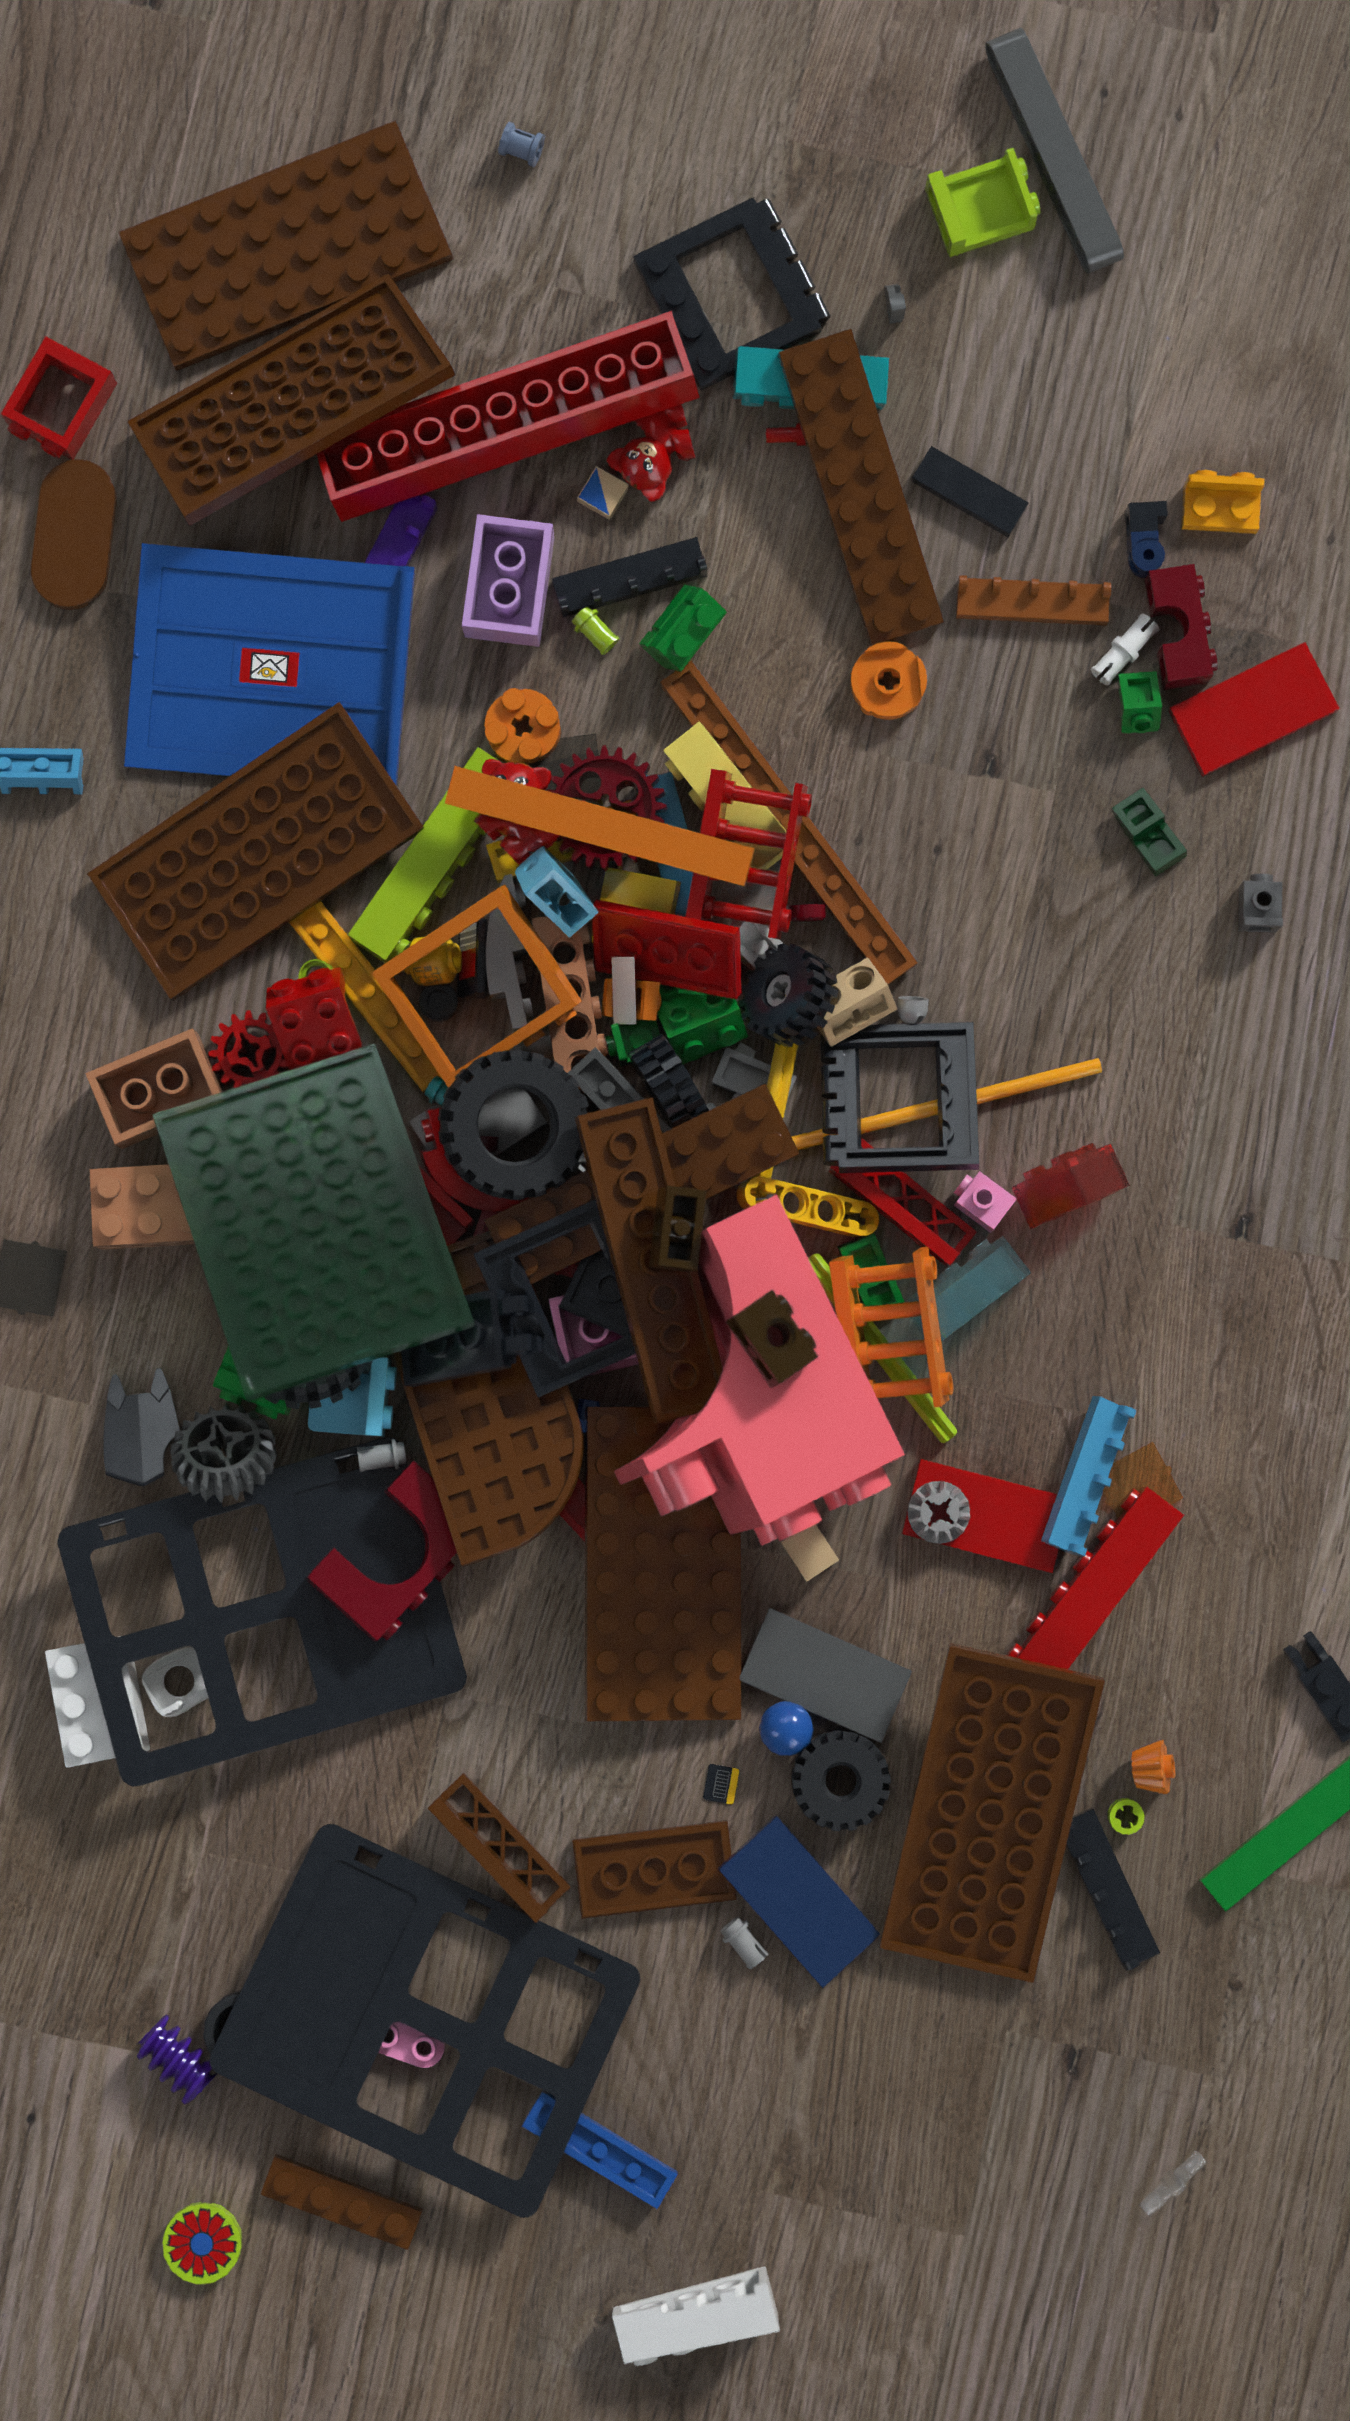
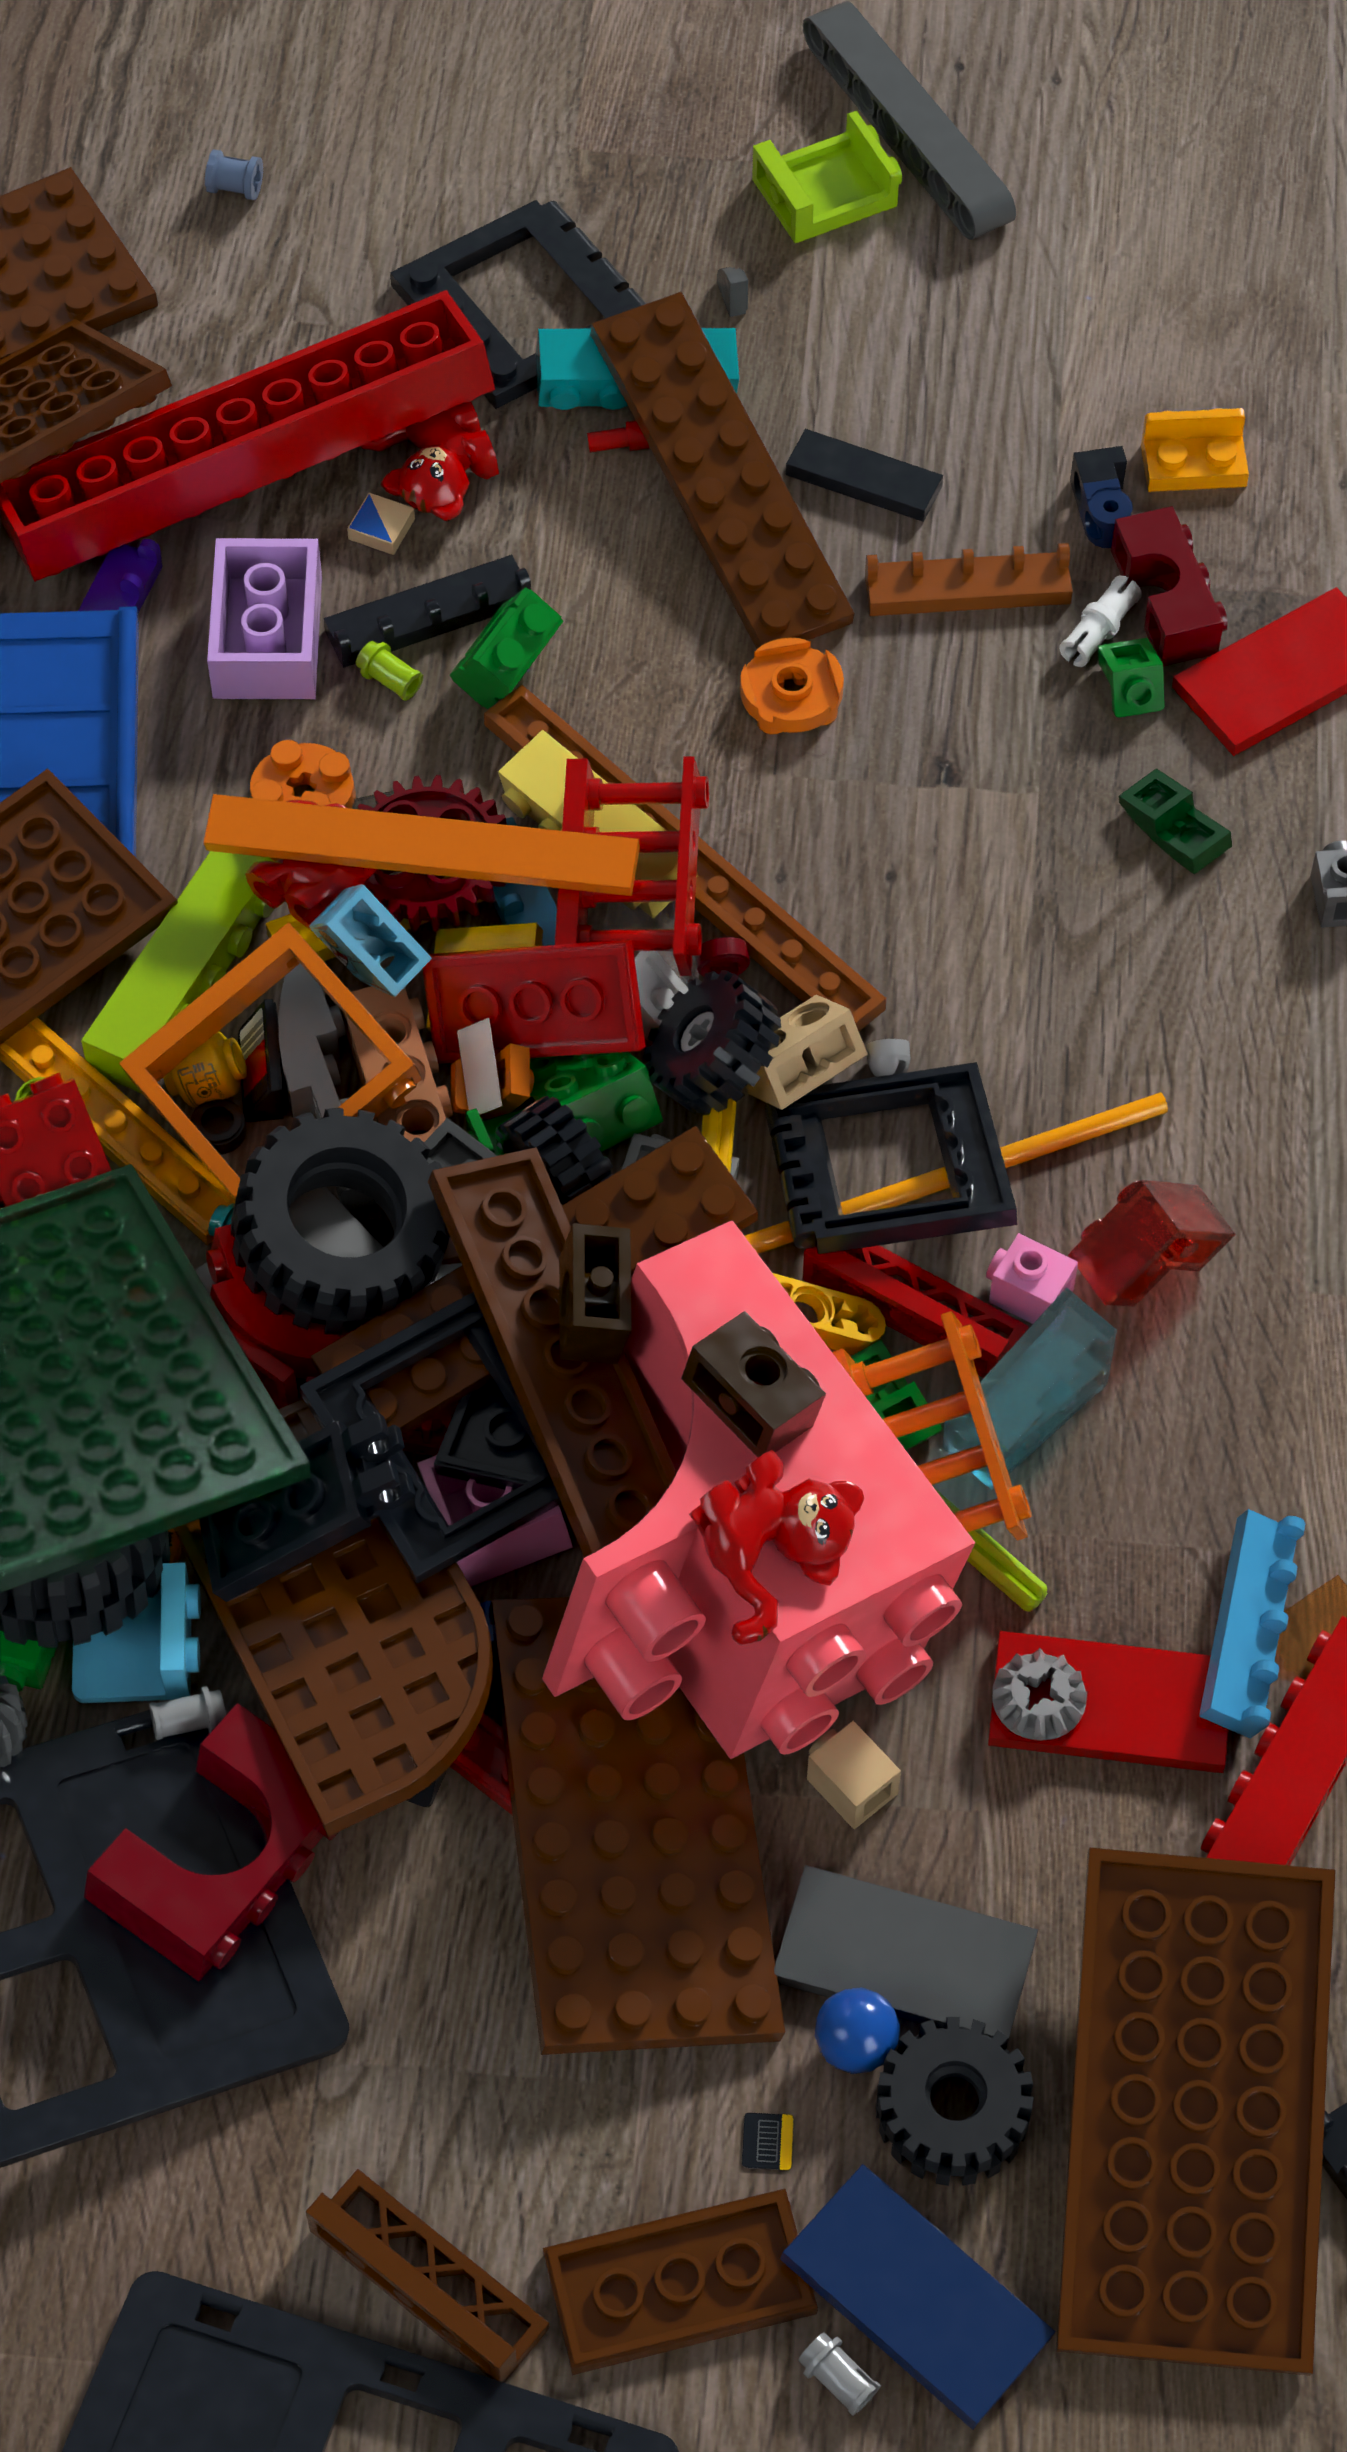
camera: 10 degrees left, 25 degrees down
(792, 1448) = (806, 1523): none -> red animal

